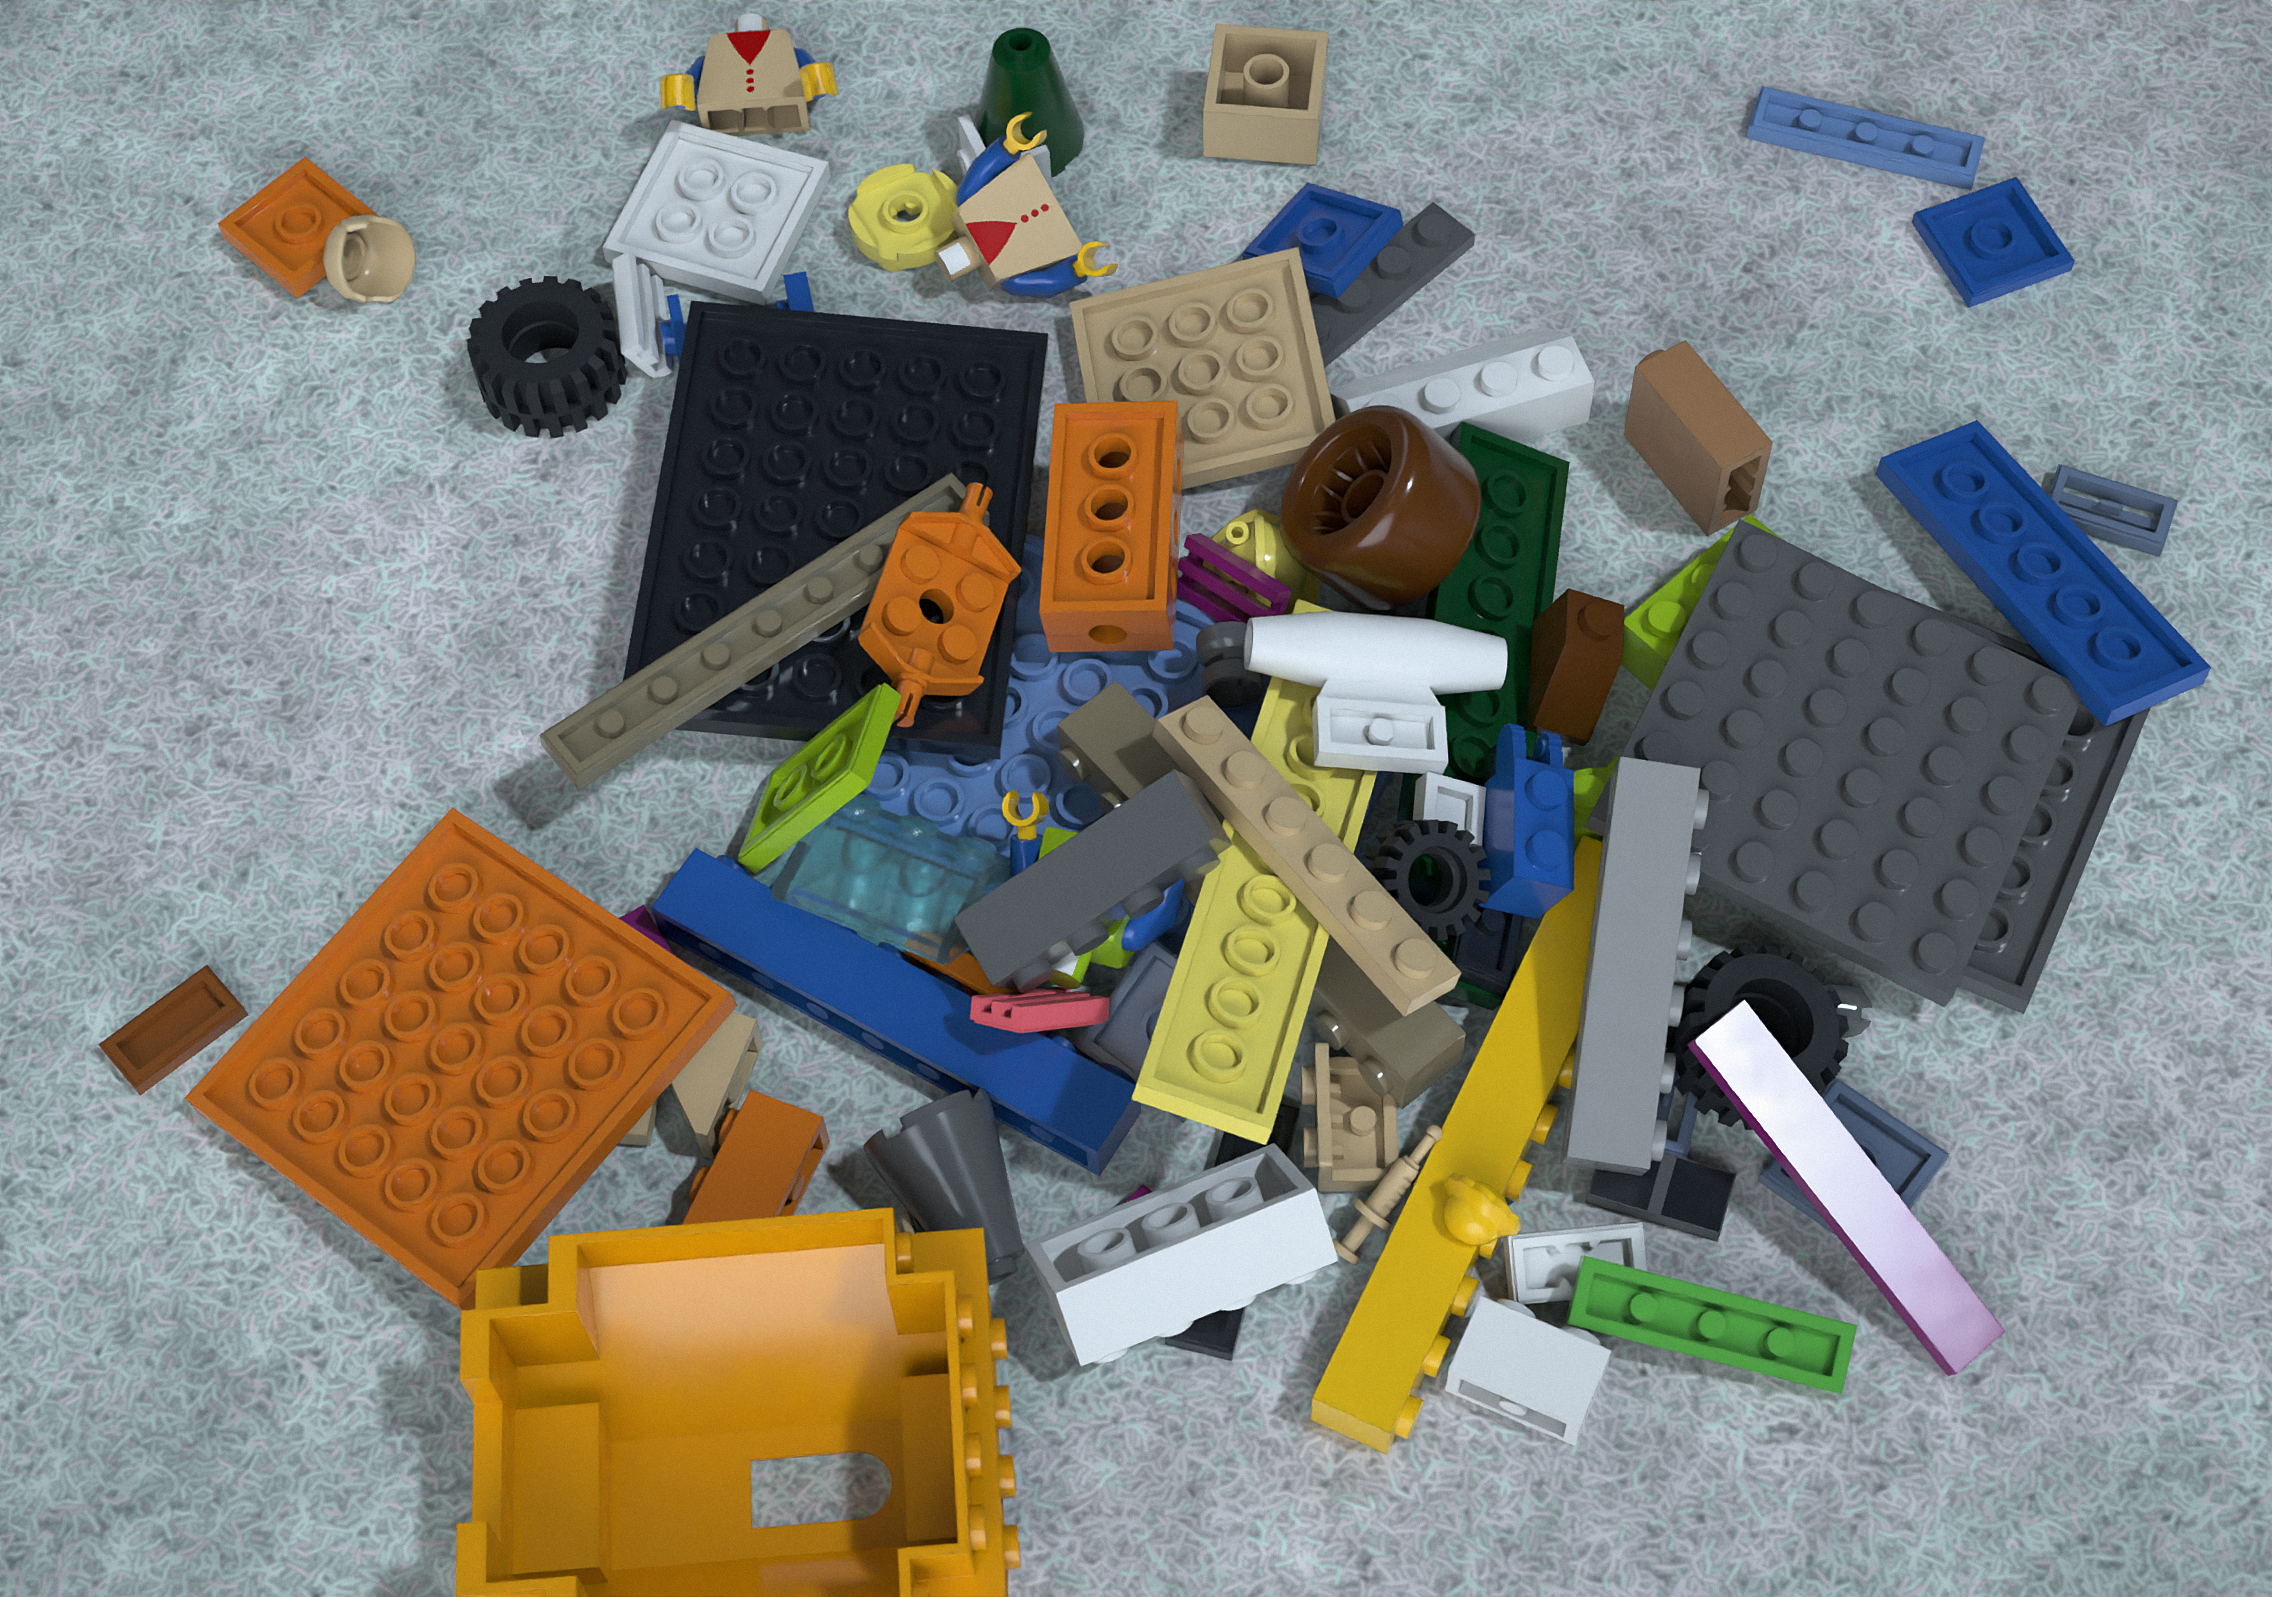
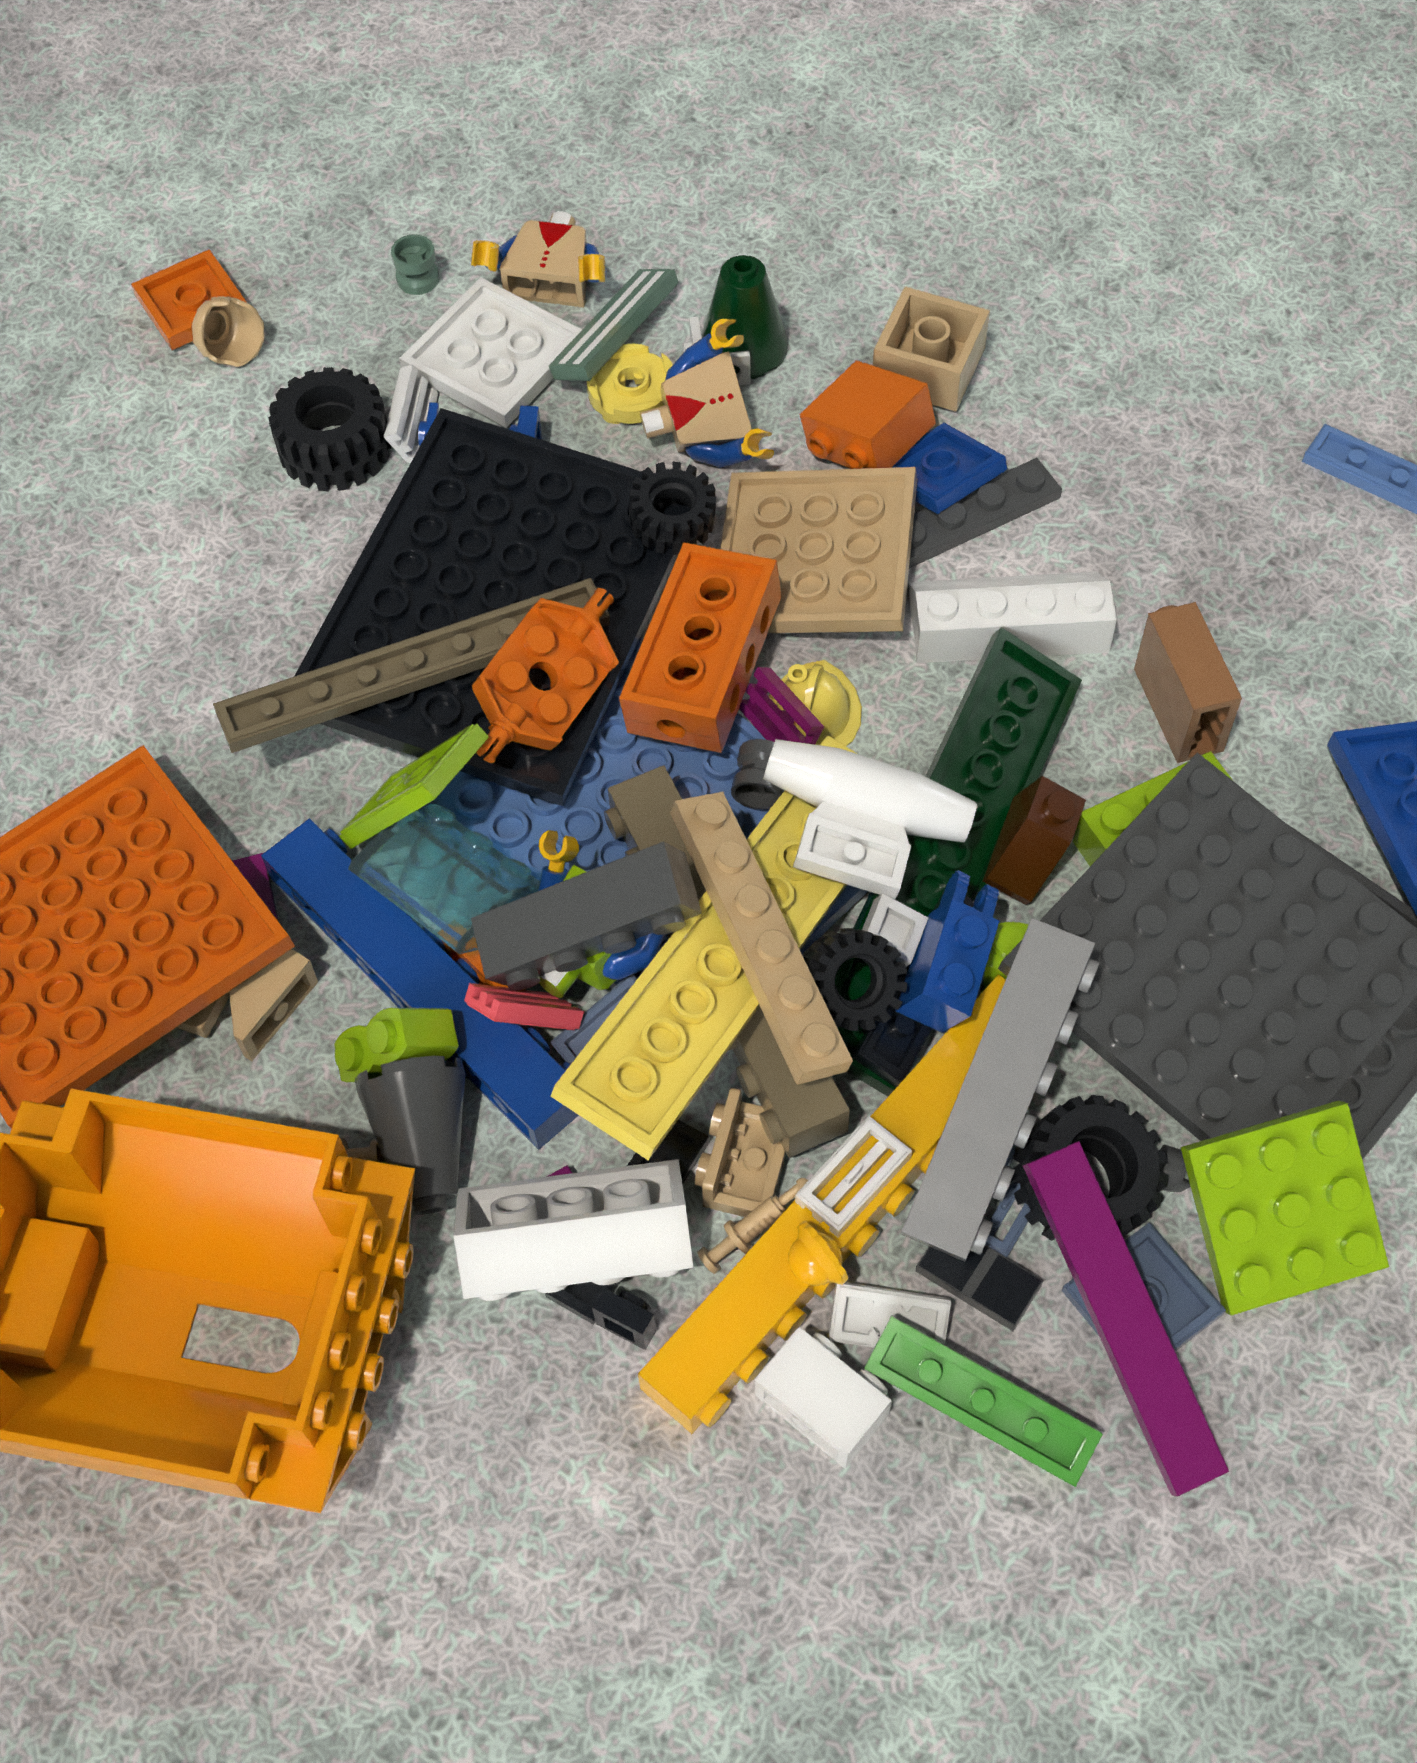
camera: 15 degrees right, 0 degrees up
(580, 120) = (415, 264): none -> sand green wheel
(762, 1162) = (276, 1077): orange brick -> none
(862, 146) = (613, 325): none -> sand green tile
(895, 1085) = (392, 1037): none -> lime brick
(1022, 335) = (672, 486): none -> black tyre
(1217, 197) = (868, 417): none -> orange piece
(1271, 1340) = (625, 1317): none -> black plate
(1380, 508) = (914, 679): reddish brown wheel -> none
(1468, 1155) = (823, 1210): none -> white tile
(1984, 1020) = (1285, 1207): none -> lime plate

